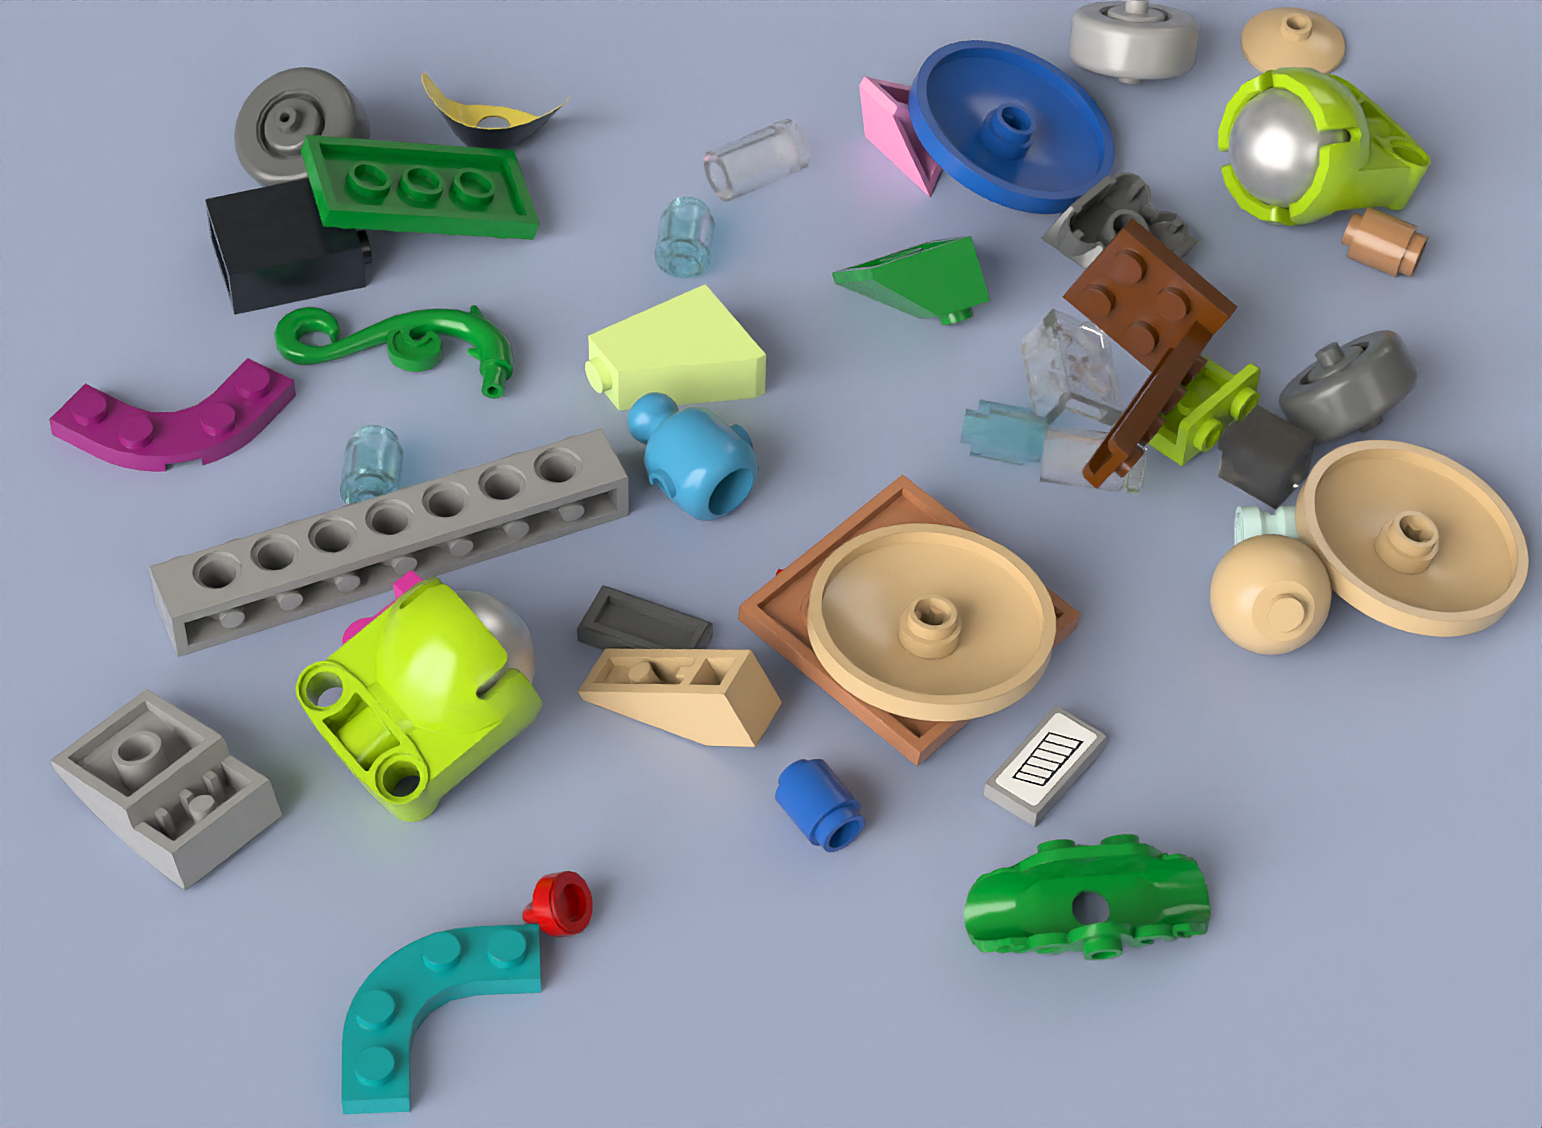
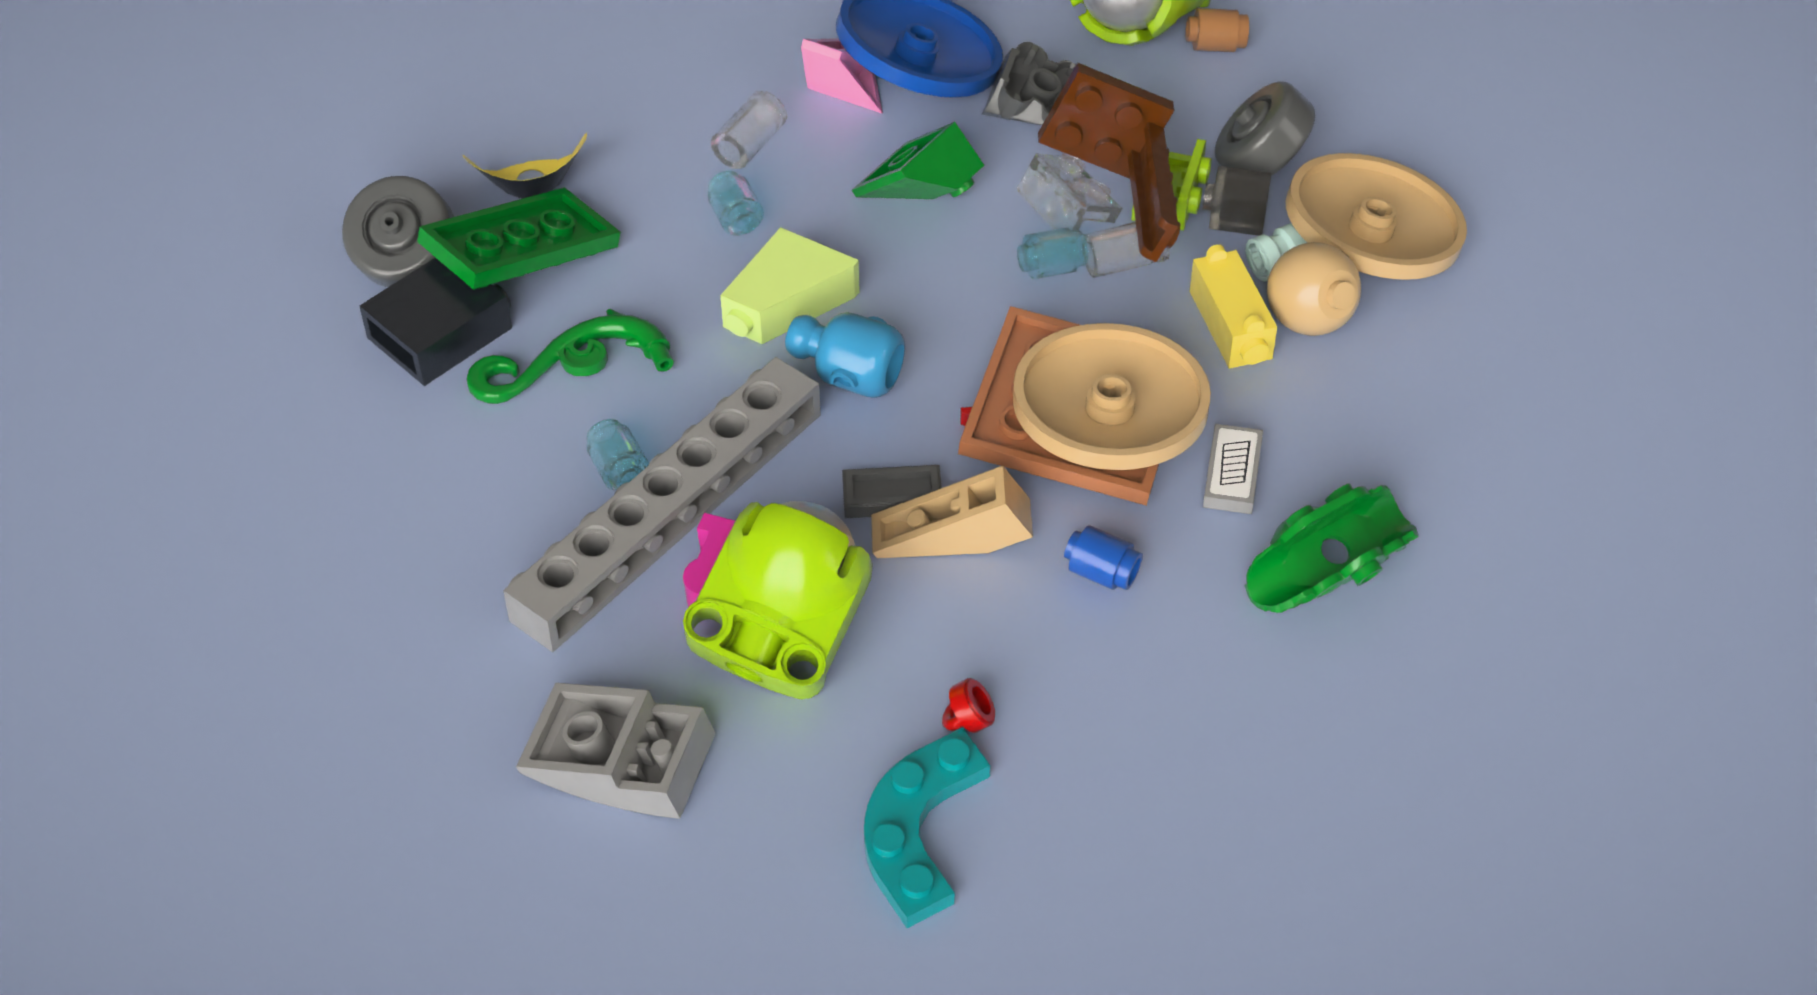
camera: 25 degrees left, 0 degrees up
(152, 439) = (429, 500): magenta plate -> none
(1168, 579) = (1232, 308): none -> light yellow brick

